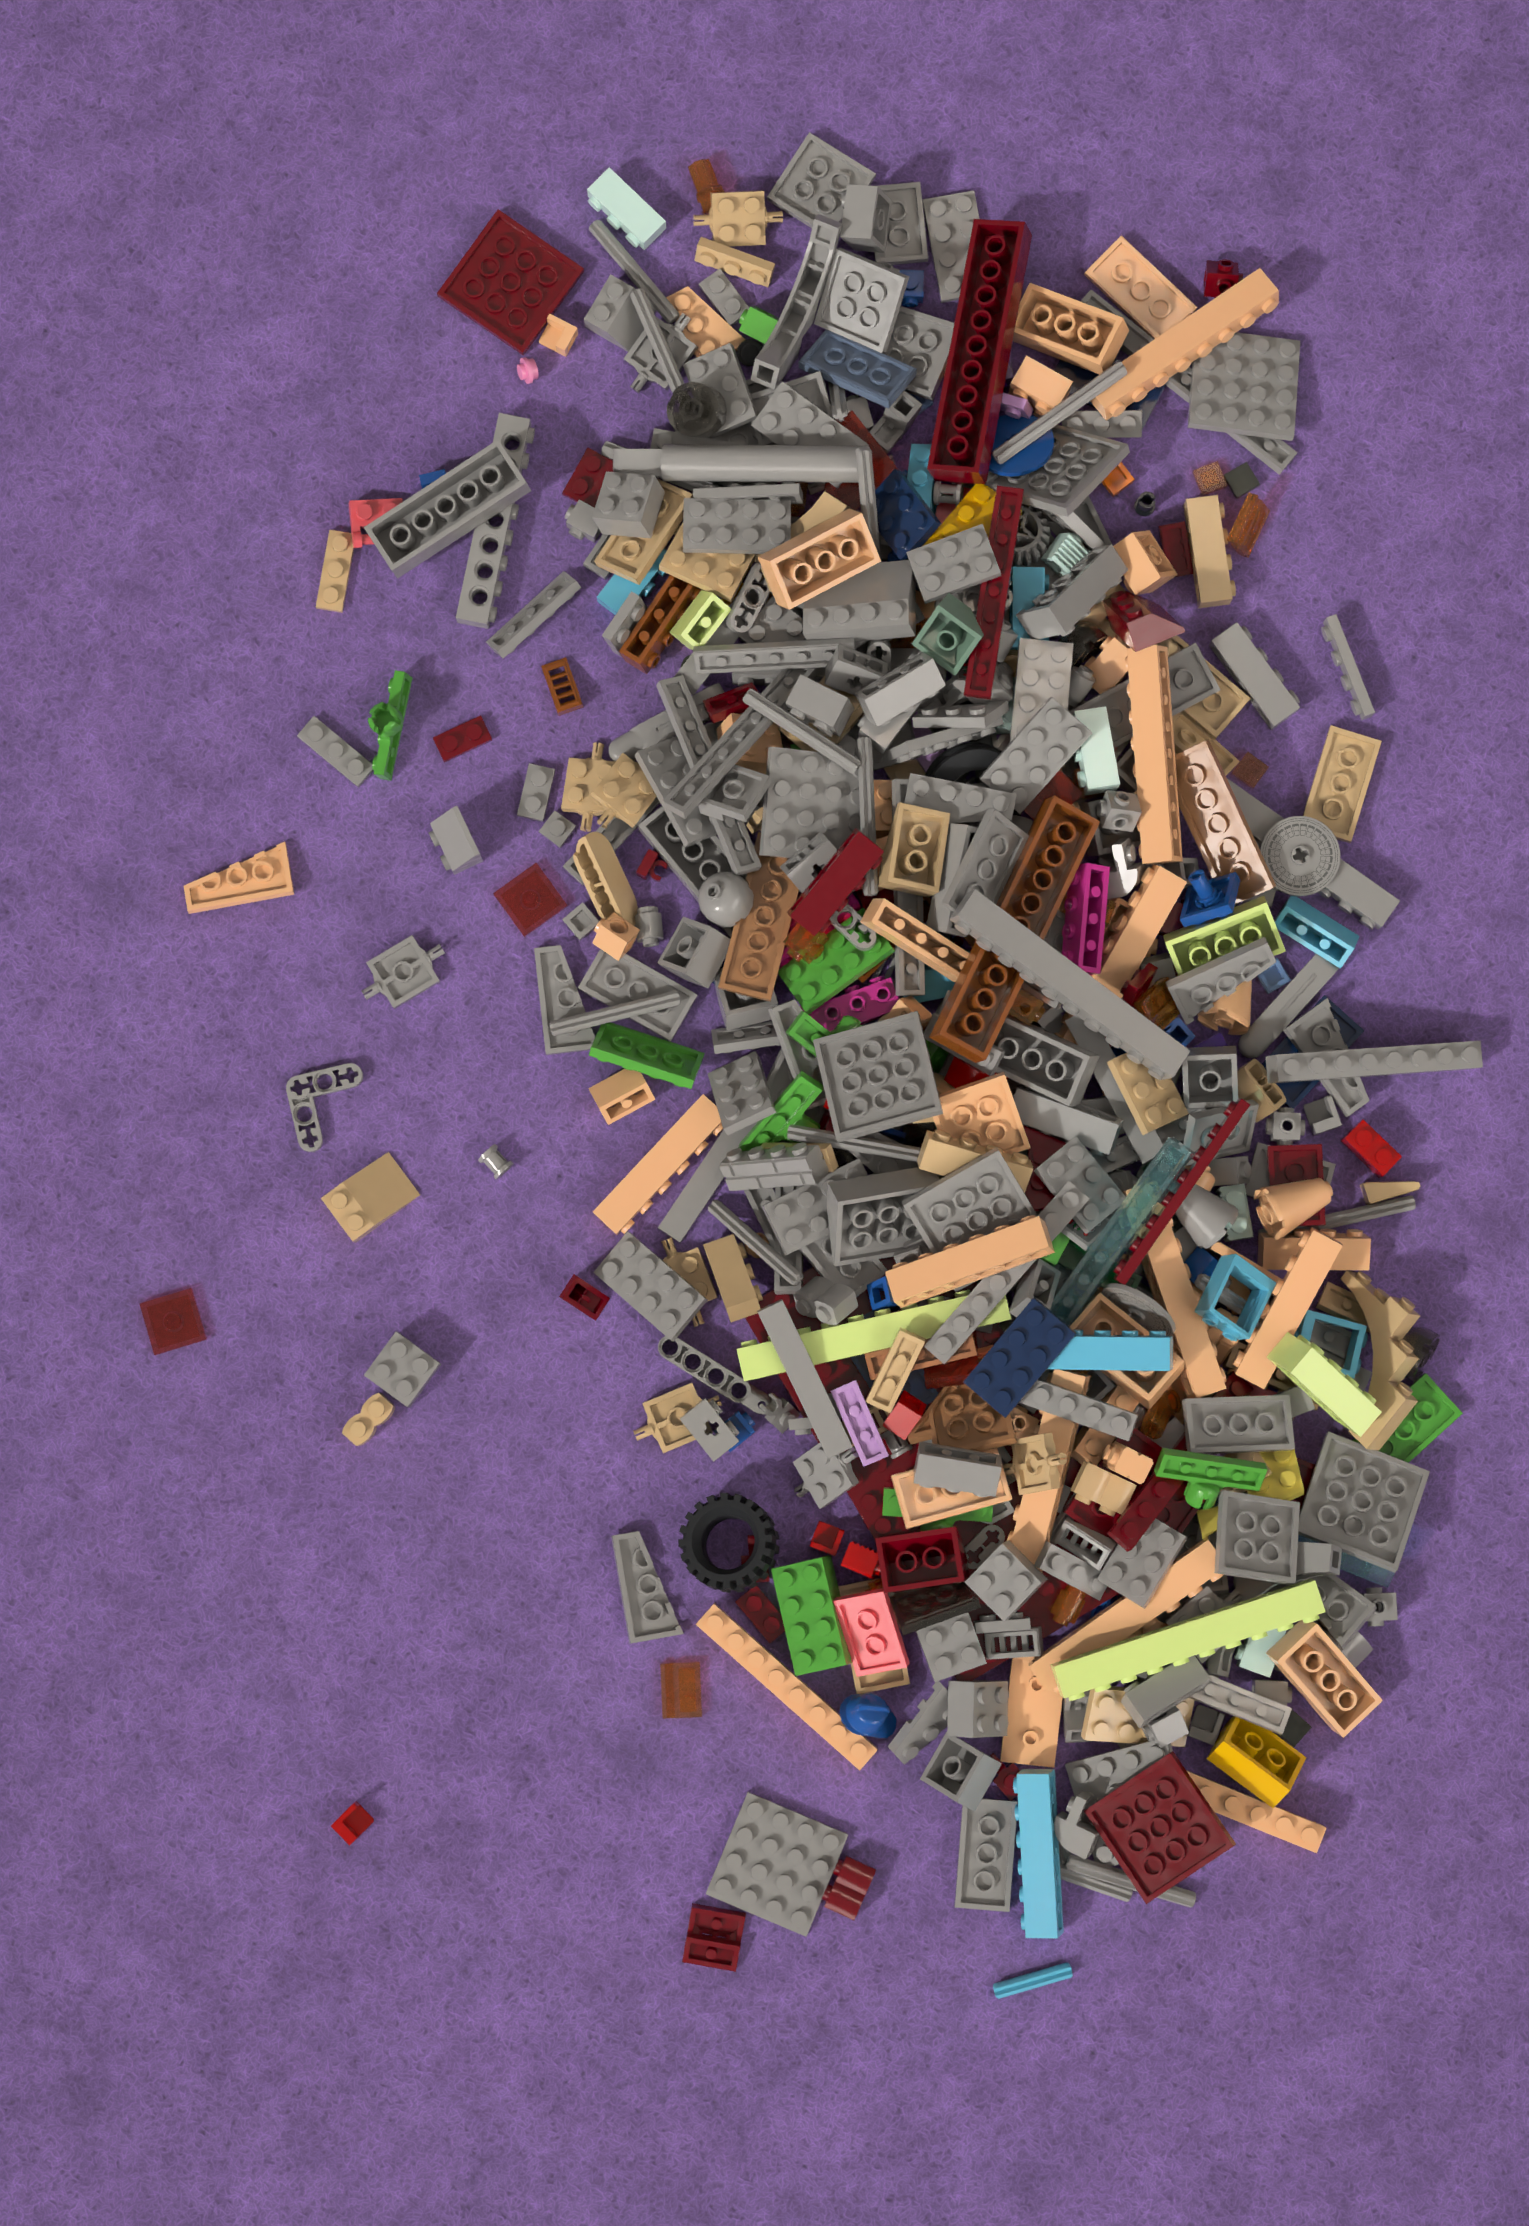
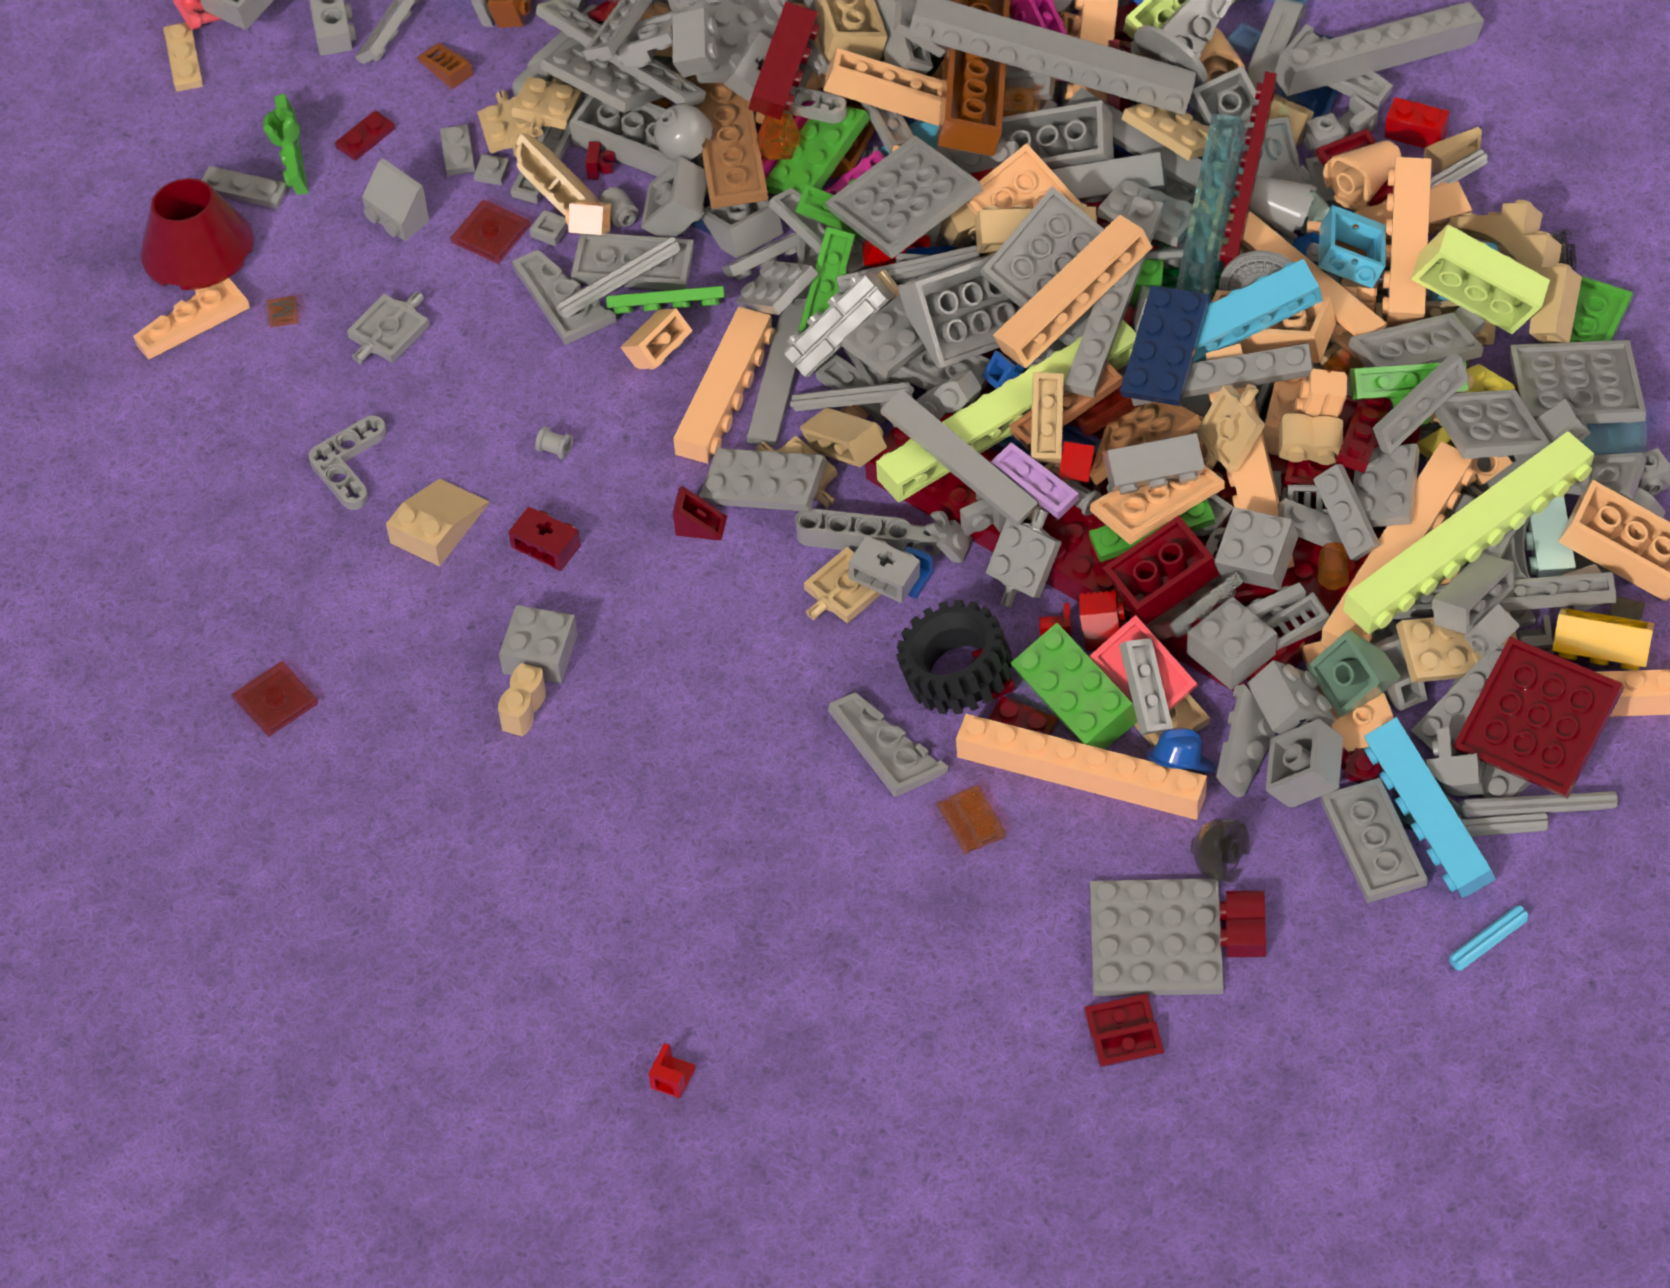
camera: 15 degrees left, 30 degrees down
(284, 829) = (193, 236): none -> dark red cone
(321, 910) = (282, 311): none -> clear orange tile
(452, 1276) = (544, 538): none -> dark red brick
(766, 825) = (694, 42): none -> light grey brick
(858, 1814) = (1220, 843): none -> clear smoke cylinder
(863, 1655) = (1146, 686): none -> light grey plate
(1037, 1712) = (1352, 672): none -> sand green slope
(1096, 1575) = (1346, 512): none -> light grey plate
(1177, 1020) = (1166, 48): none -> light grey piece
(1196, 1509) = (1420, 403): none -> light grey plate

